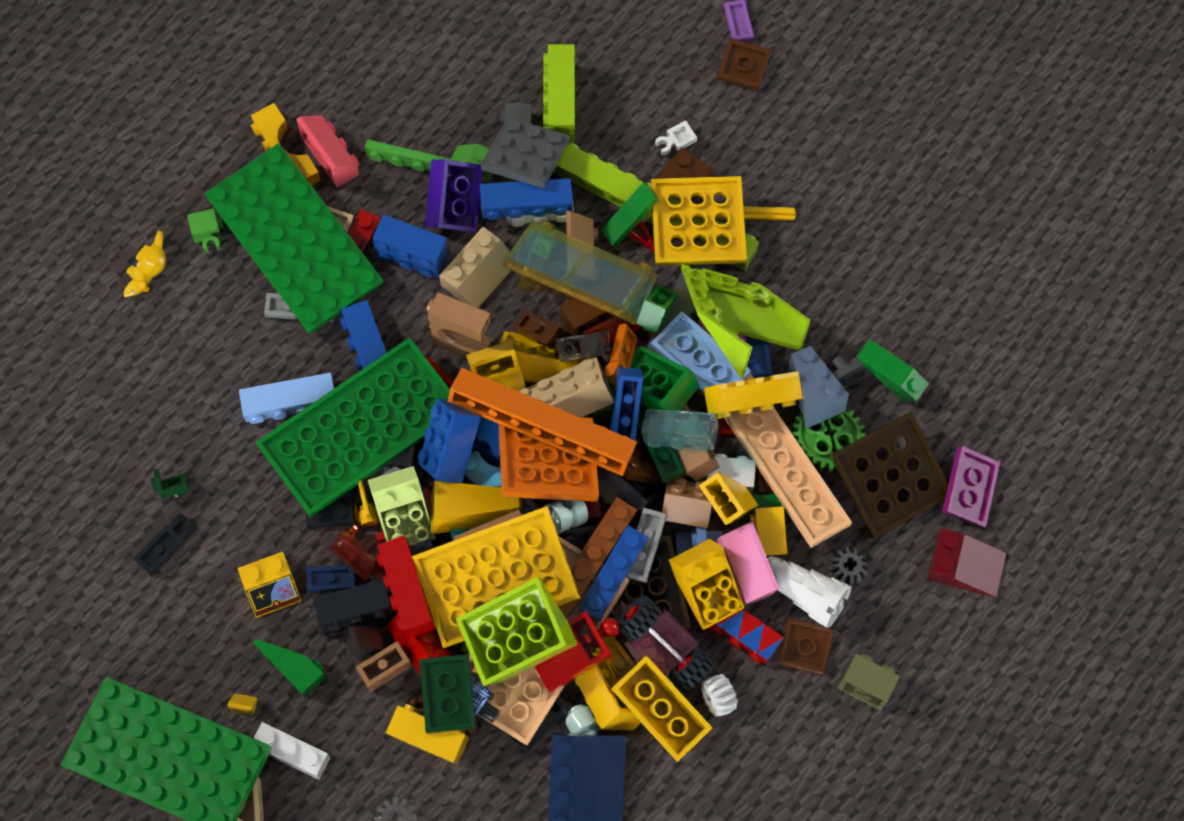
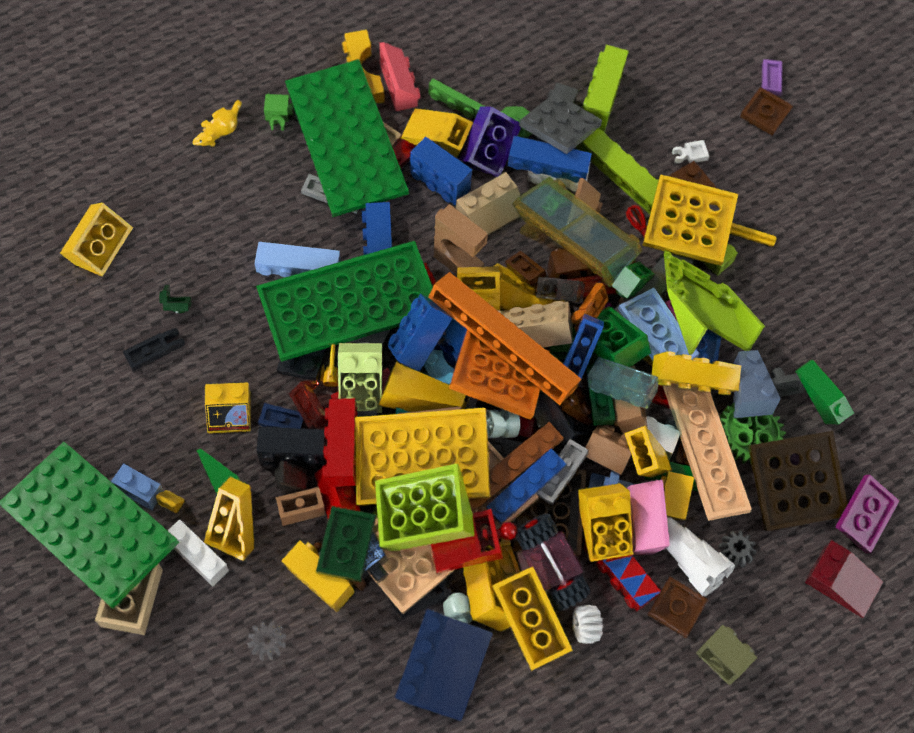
camera: 15 degrees right, 5 degrees down
(58, 441) = (96, 239): none -> yellow slope
(203, 700) = (137, 486): none -> medium blue brick
(318, 706) = (232, 520): none -> yellow wedge
(395, 197) = (442, 128): none -> yellow slope
(630, 214) = (633, 198): green tile -> none

